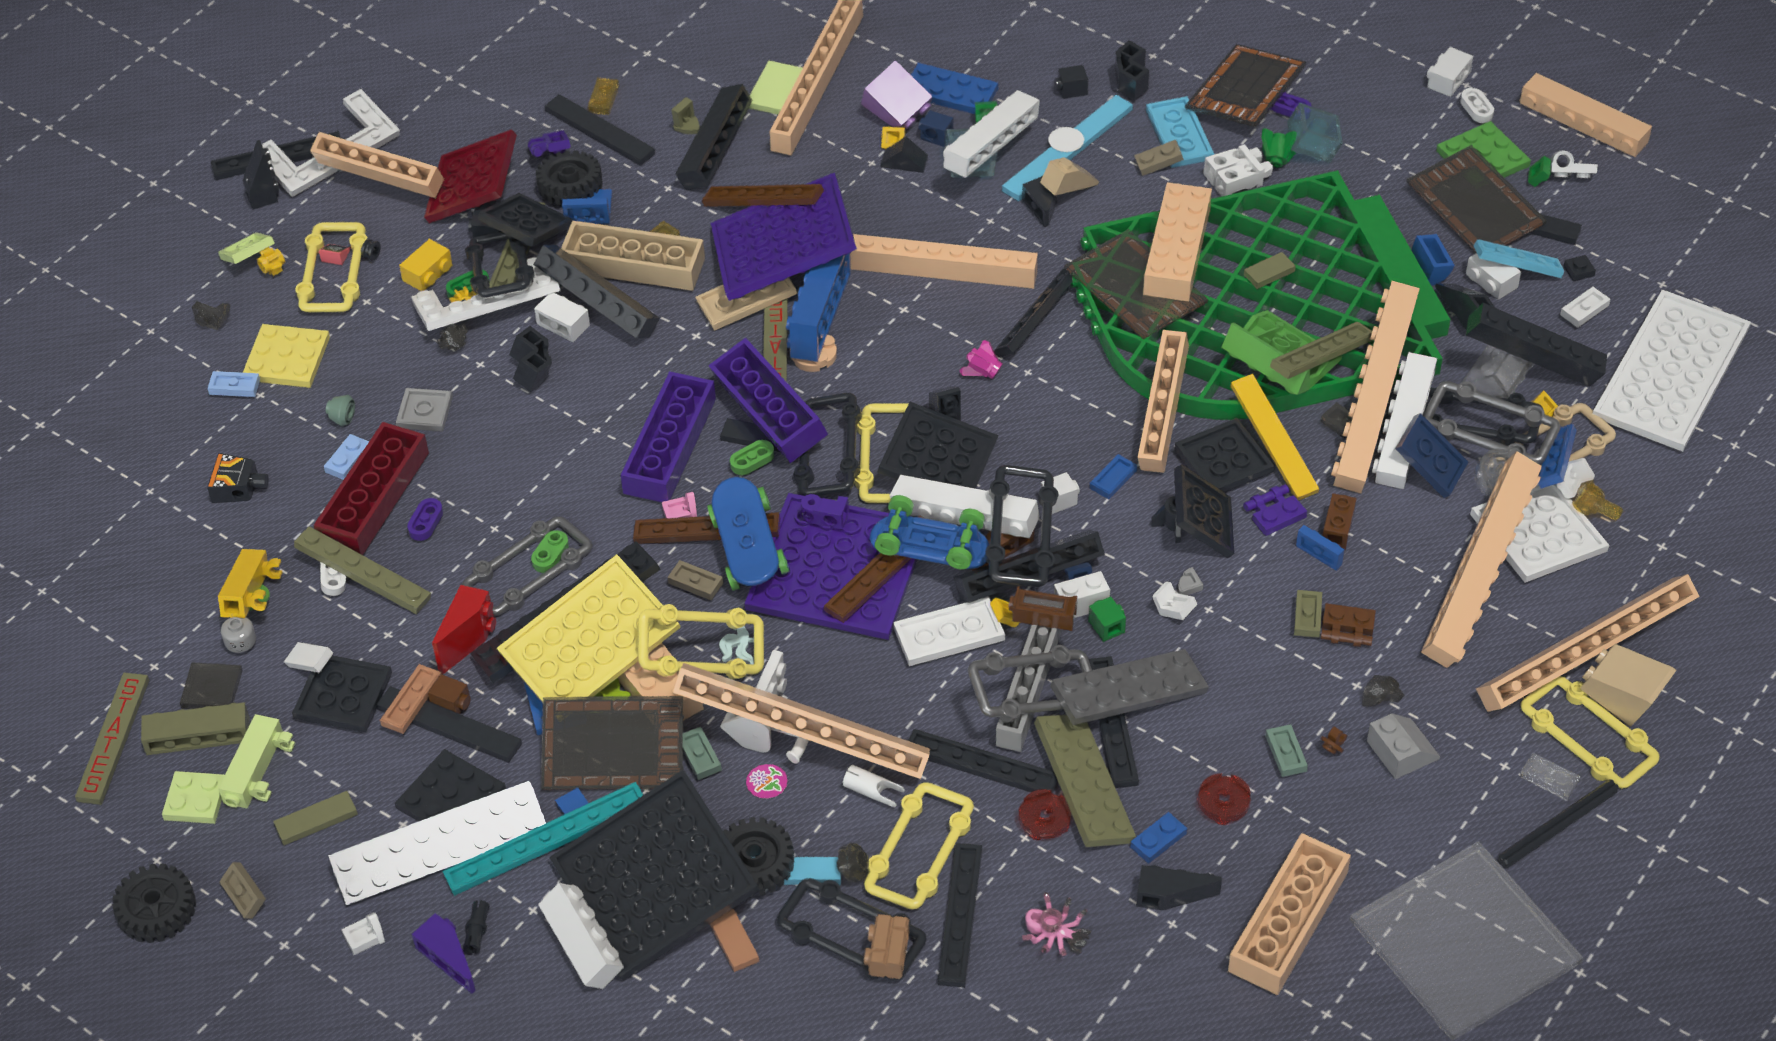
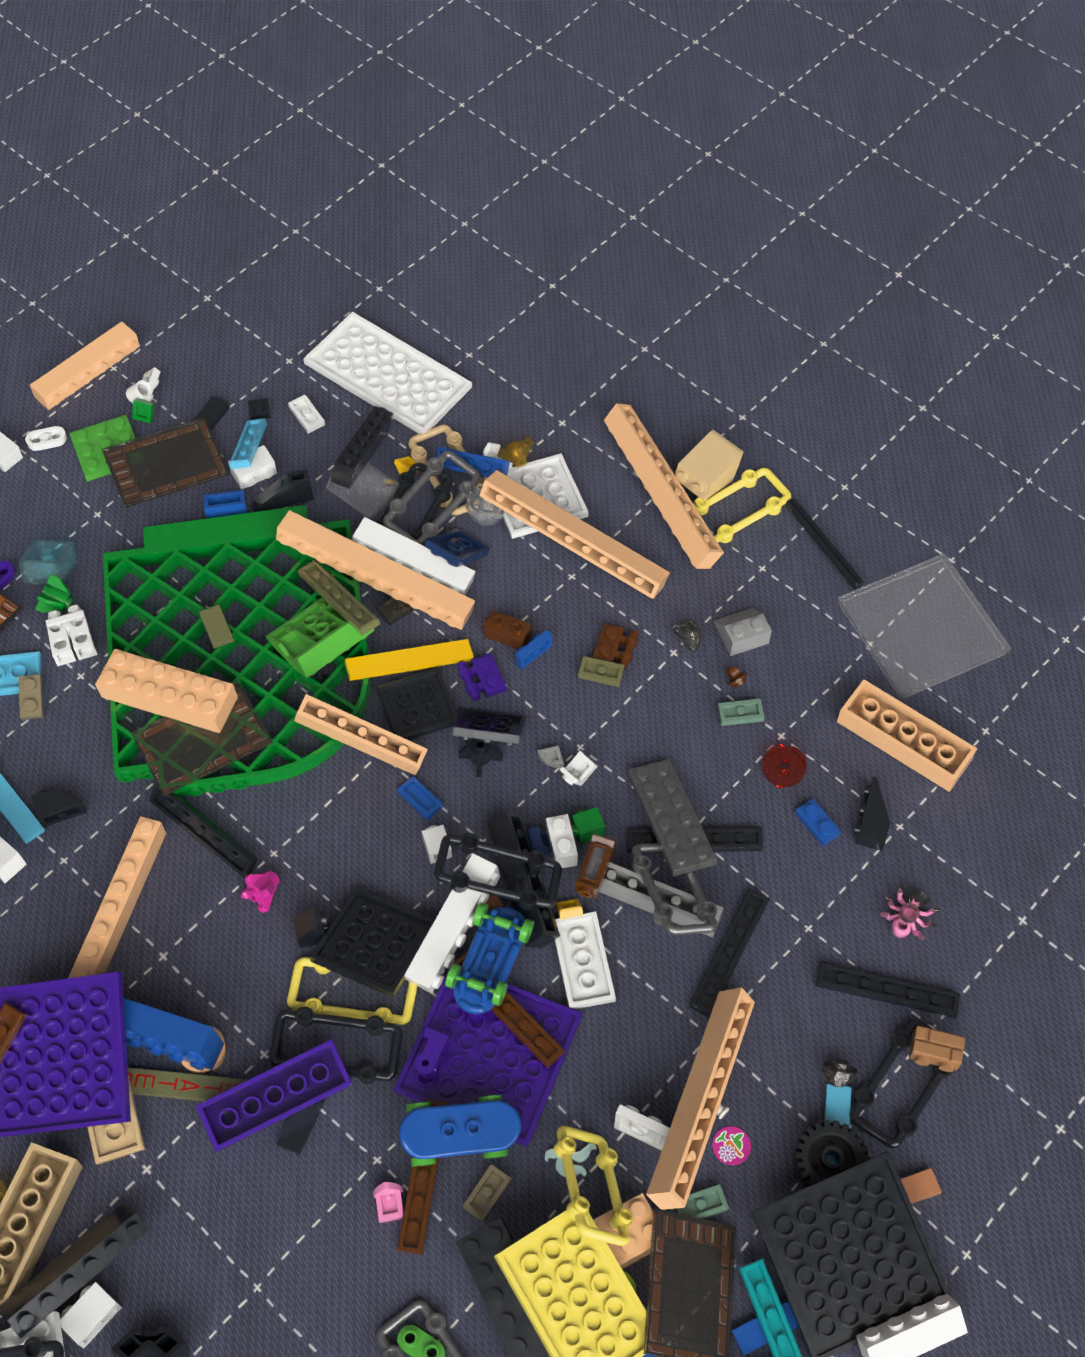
camera: 85 degrees left, 10 degrees up
(668, 437) = (298, 1204): dark purple brick -> none
(749, 457) = (337, 1123): bright green plate -> none
(869, 784) = (750, 1050): white piece -> none
(926, 883) = (859, 1013): light yellow bar -> none
(1040, 827) = (785, 917): clear red plate -> none
(1065, 176) = (45, 776): tan slope -> none
(1085, 781) = (765, 868): olive plate -> none
(1550, 776) = (777, 540): clear plate -> none

